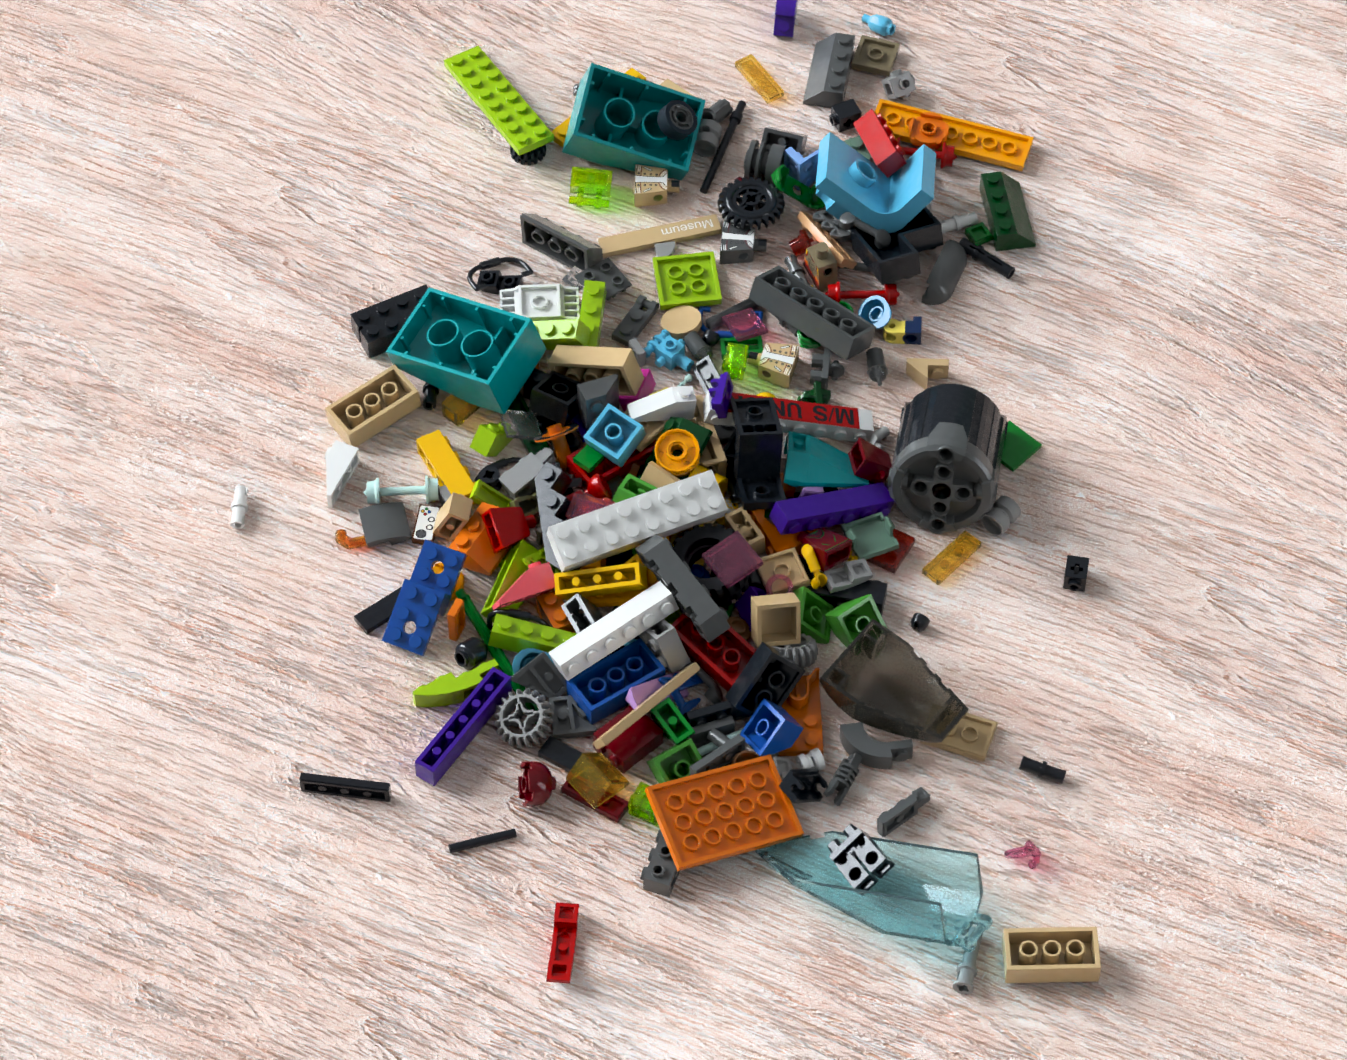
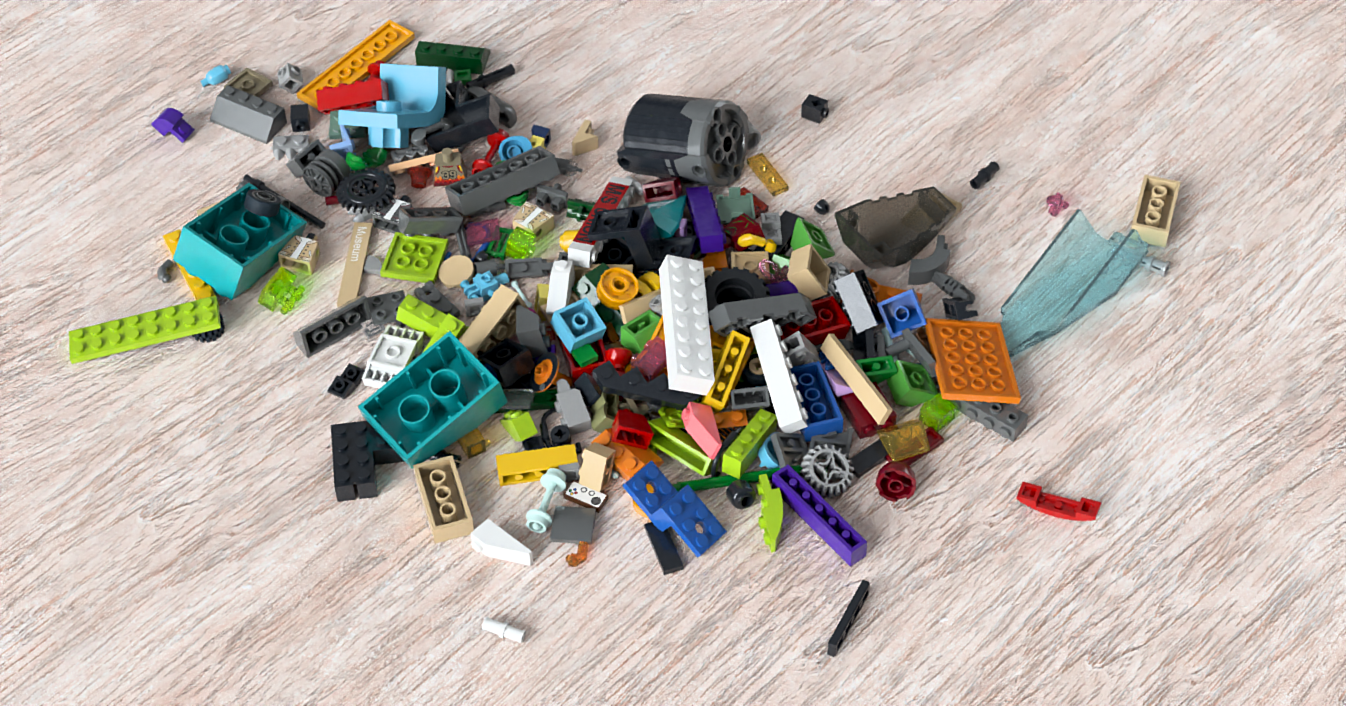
camera: 70 degrees left, 5 degrees down
(456, 619) = (707, 490): orange tile -> none
(474, 462) = (533, 443): none -> black tile
(483, 840) = (933, 537): black bar -> none
(484, 493) = (583, 439): lime tile -> none
(492, 263) = (321, 380): black piece -> none
(721, 393) = (589, 239): dark purple plate -> none
(729, 267) = (429, 221): none -> dark grey slope
(732, 559) = (748, 276): clear pink tile -> none
(759, 78) = (225, 161): clear yellow tile -> none
(795, 268) = (436, 189): dark grey pin -> none
(806, 123) = (289, 145): none -> light grey plate
(813, 759) = (932, 303): white wheel -> none
(855, 855) = (1037, 292): hips -> none
(902, 812) = (996, 261): dark grey hinge -> none
(919, 125) = (356, 65): orange plate -> none

